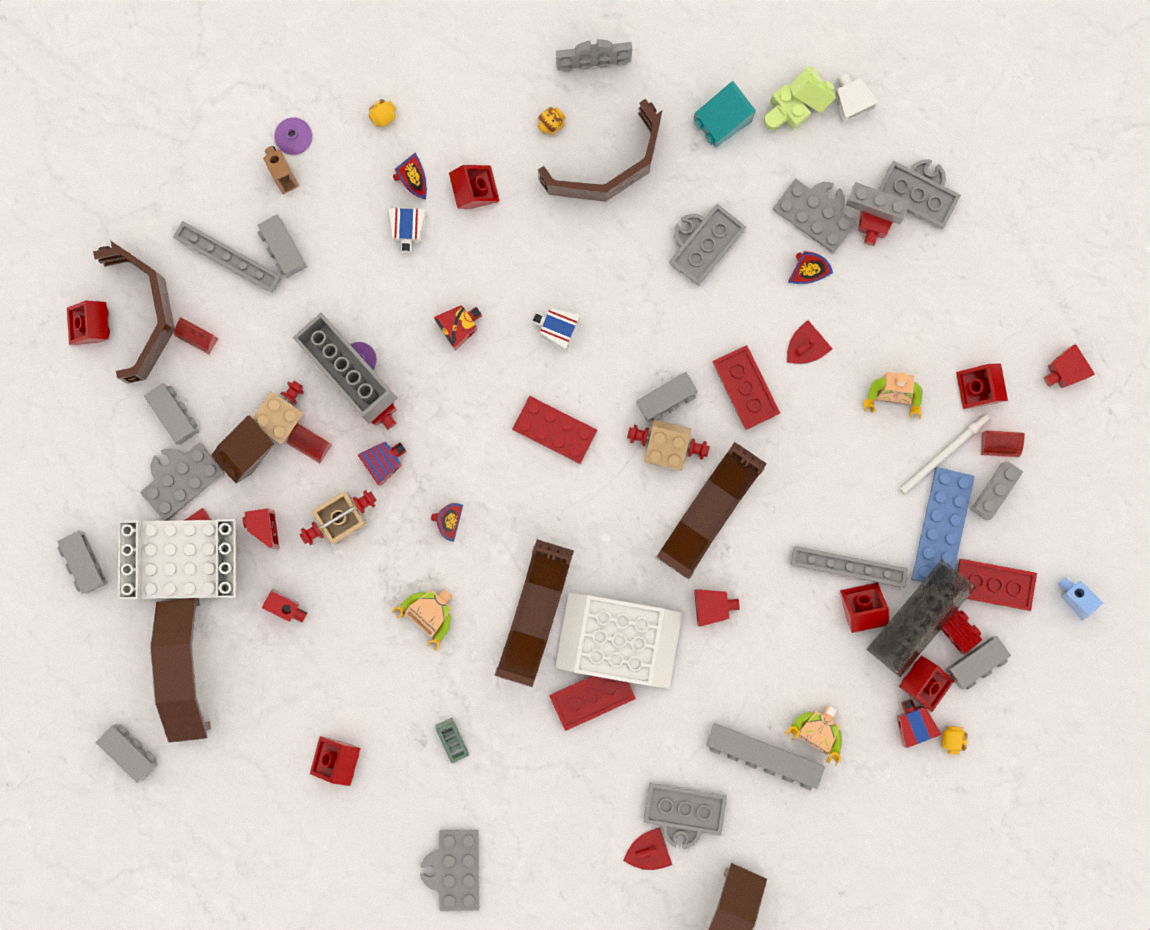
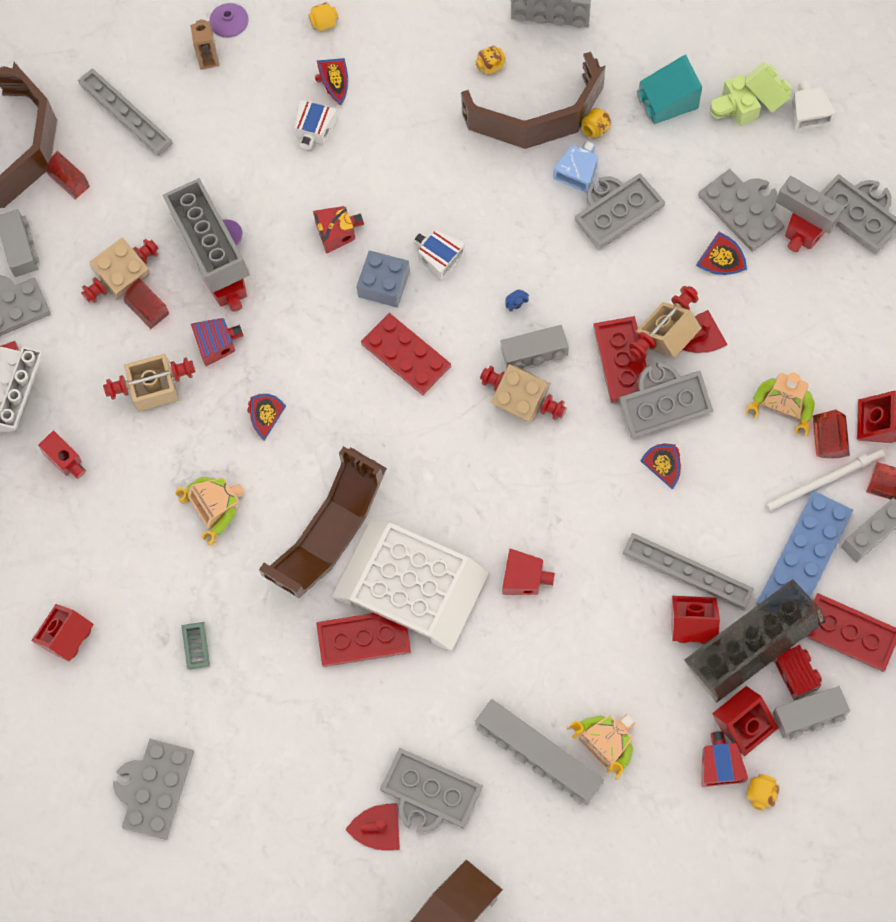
camera: 20 degrees right, 15 degrees down
(243, 450) = (74, 289): reddish brown slope -> none
(262, 526) = (70, 368): red slope -> none
(281, 246) = (181, 113): light grey brick -> none
(473, 186) = (393, 101): red slope -> none
(515, 365) = (383, 278): none -> sand blue brick
(639, 355) = (516, 299): none -> blue plate
(660, 210) = (577, 167): none -> light blue torso
(664, 163) = (596, 123): none -> yellow head
(710, 510) = (552, 470): reddish brown panel -> none
(780, 352) = (668, 327): none -> tan brick
(792, 419) = (664, 400): none -> light grey plate
(806, 476) = (664, 462): none -> shield
(941, 412) = (831, 434): none -> clear red brick

